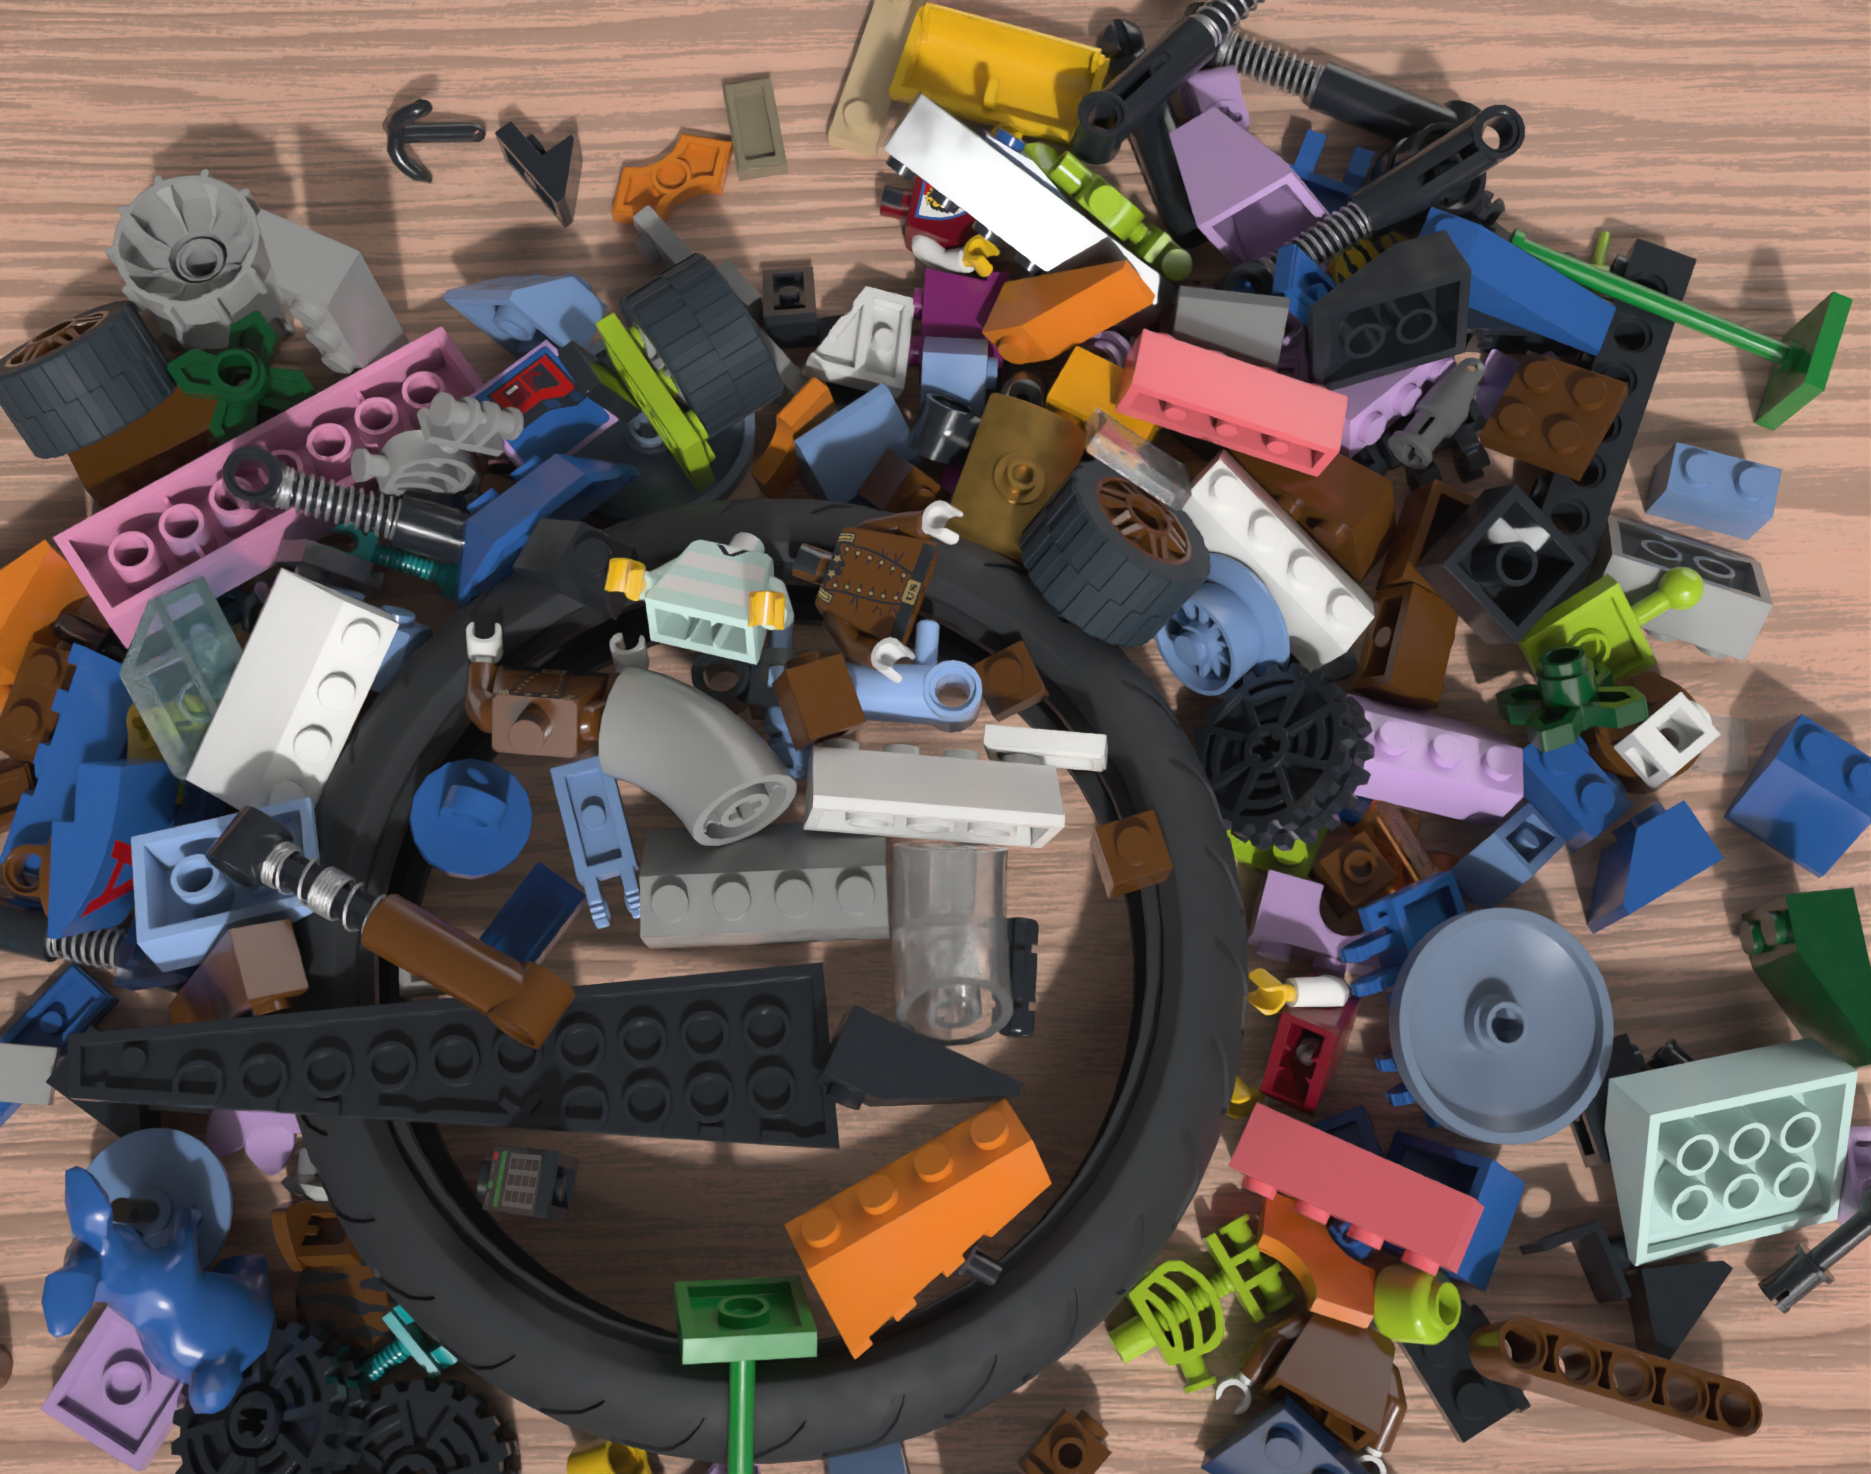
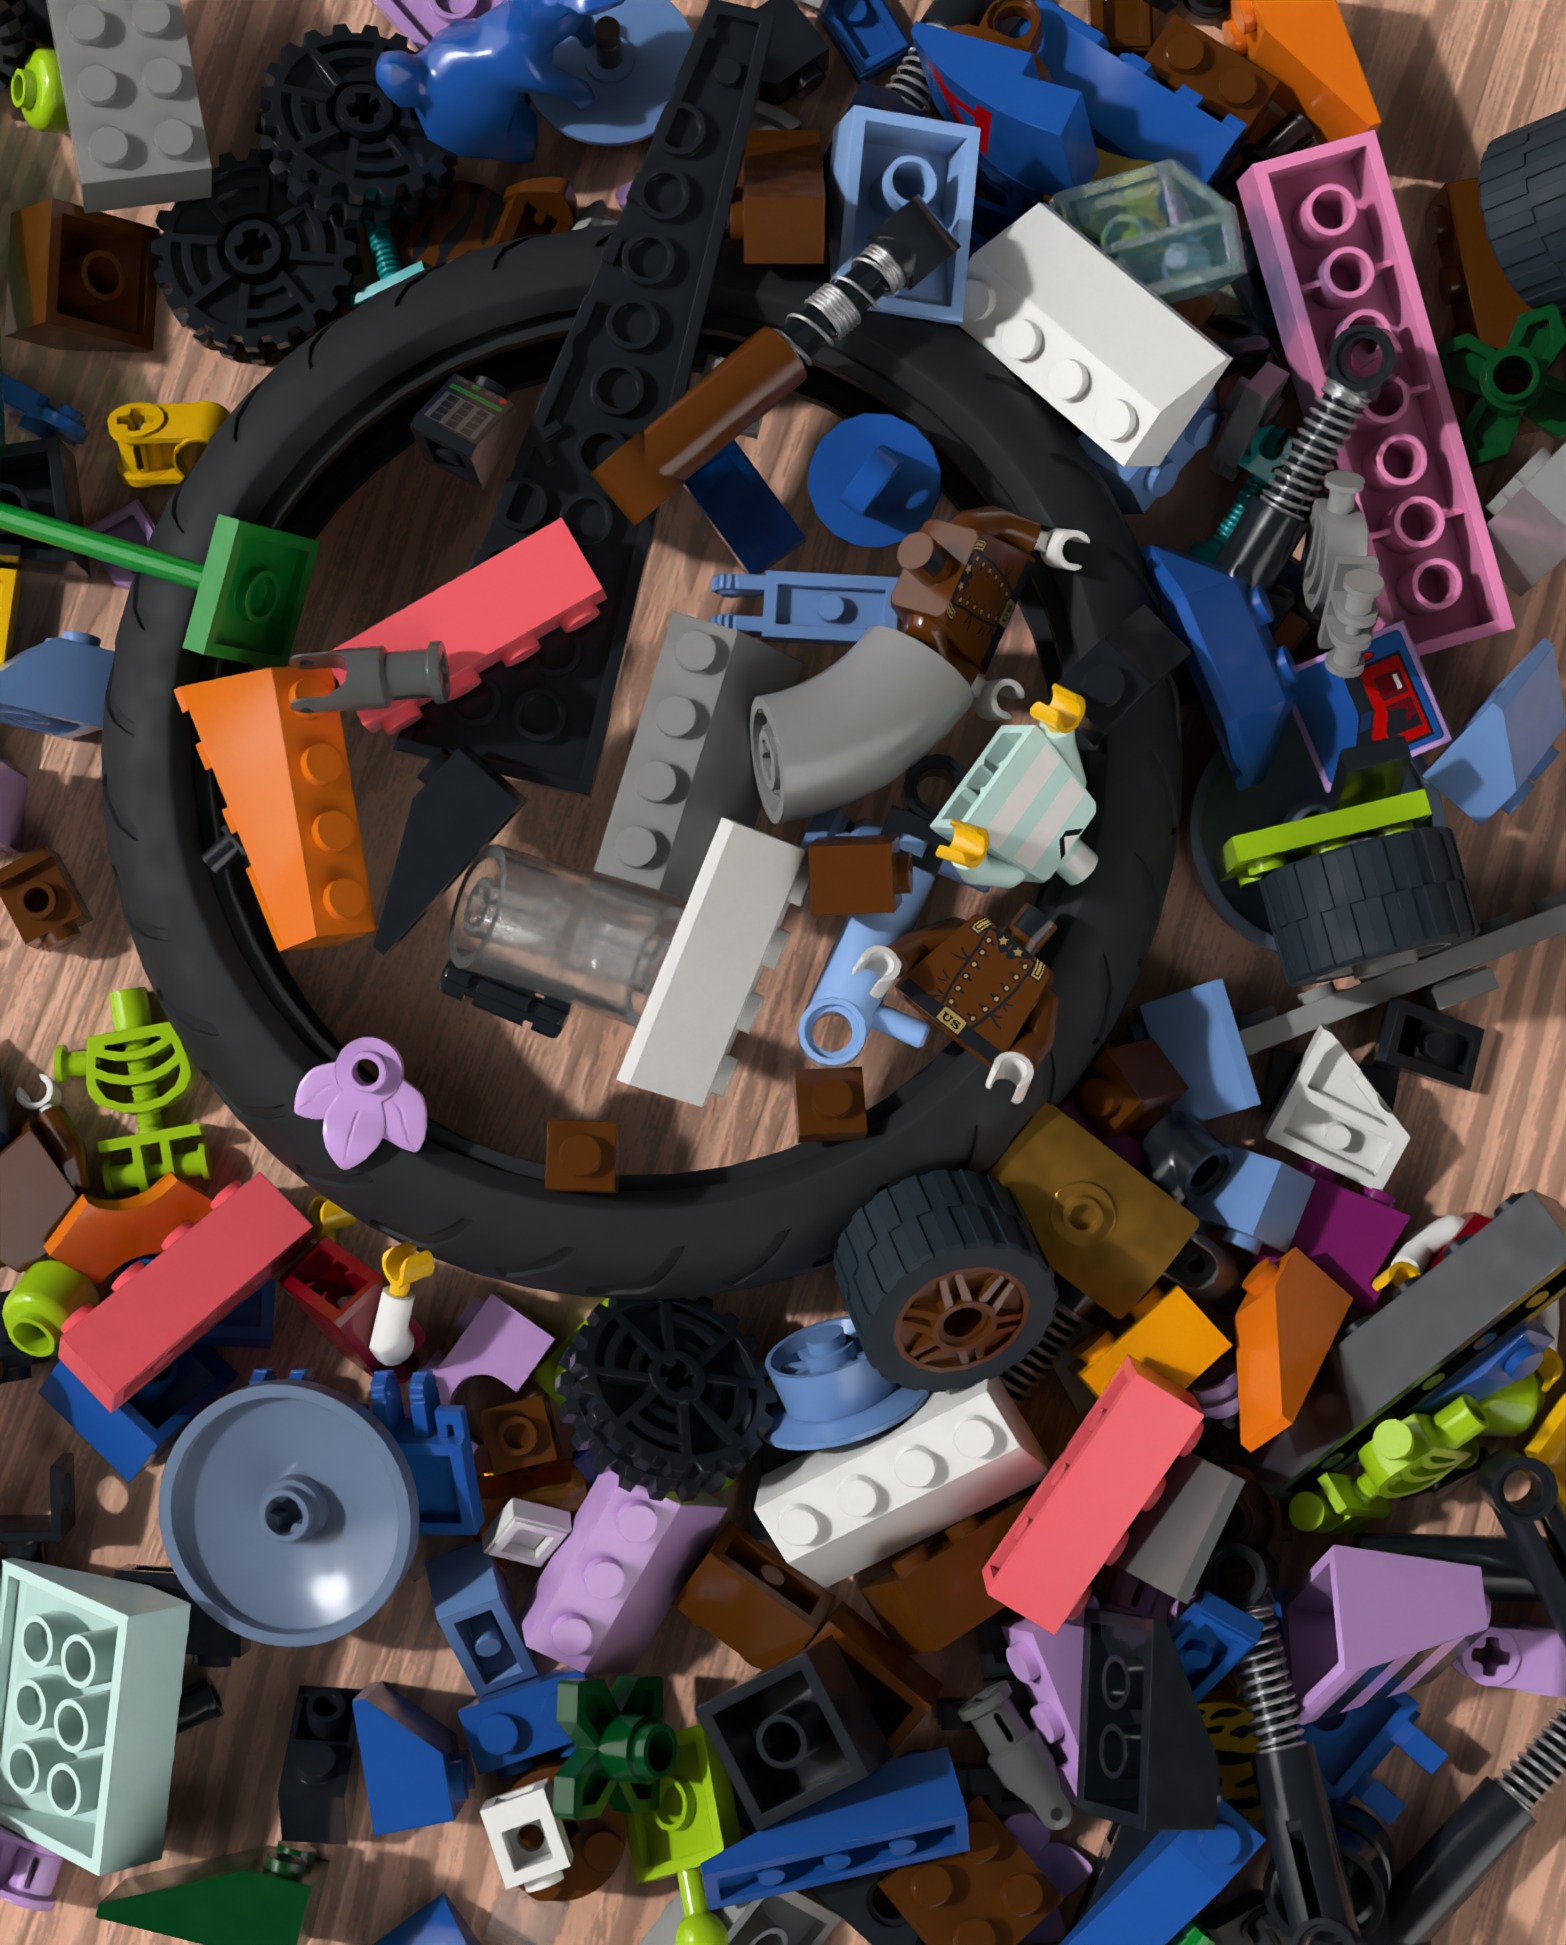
camera: 110 degrees right, 10 degrees up
(711, 1110) = (488, 616): none -> coral brick
(779, 463) = (1245, 986): orange tile -> none
(785, 1161) = (377, 677): none -> dark grey piece
(1052, 747) = (733, 1110): white tile -> none
(1137, 459) = (1050, 1350): clear tile -> none
(1162, 1059) = (363, 1112): none -> lavender plate
(1430, 837) = (526, 1532): none -> white tile
(1520, 456) = (883, 1822): none -> blue slope
(1675, 941) = (320, 1767): none -> black slope

